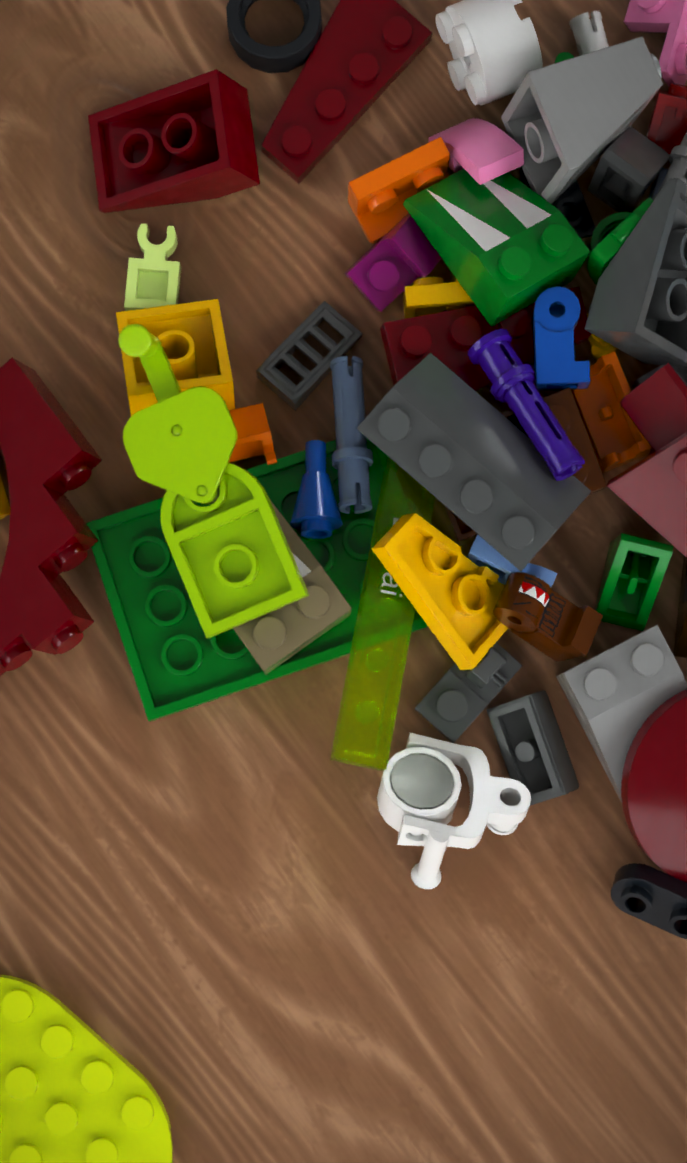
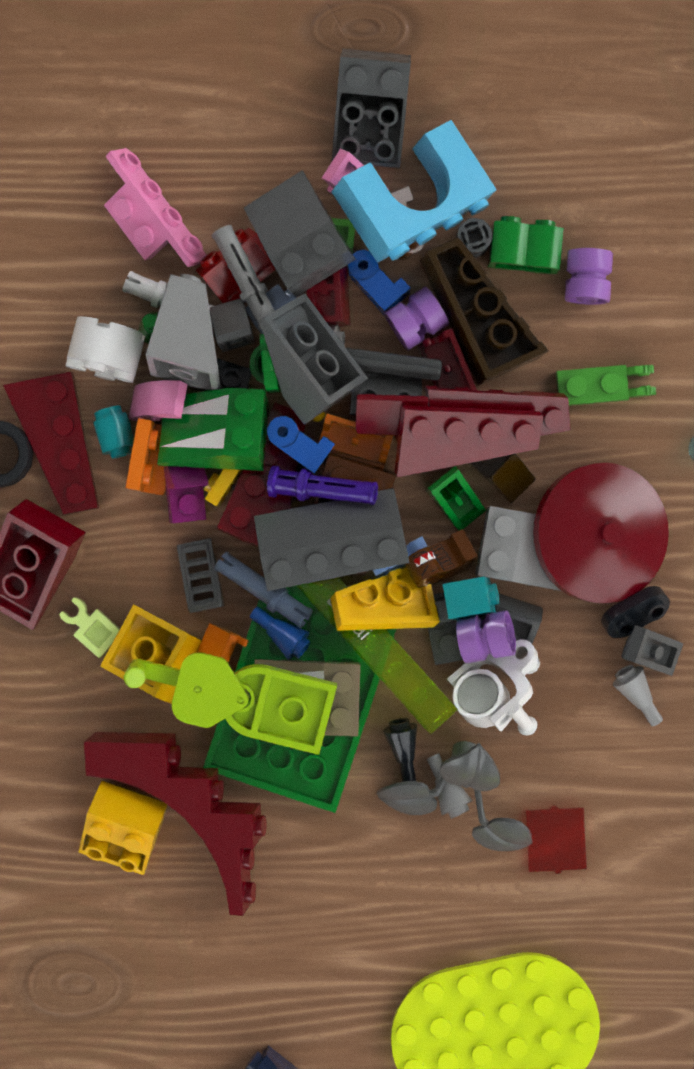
camera: 45 degrees left, 5 degrees up
(274, 844) = (452, 798): none -> light grey cone
(294, 737) = (402, 740): none -> black cone
(315, 1015) = (557, 839): none -> clear red piece
(323, 830) = (467, 767): none -> dark grey plant
(401, 128) = (113, 431): none -> teal brick
(492, 734) = (484, 637): none -> medium lavender wheel
(529, 685) = (470, 597): none -> teal brick
(572, 970) = (634, 686): none -> light grey cone
(633, 956) = (652, 650): none -> dark grey slope

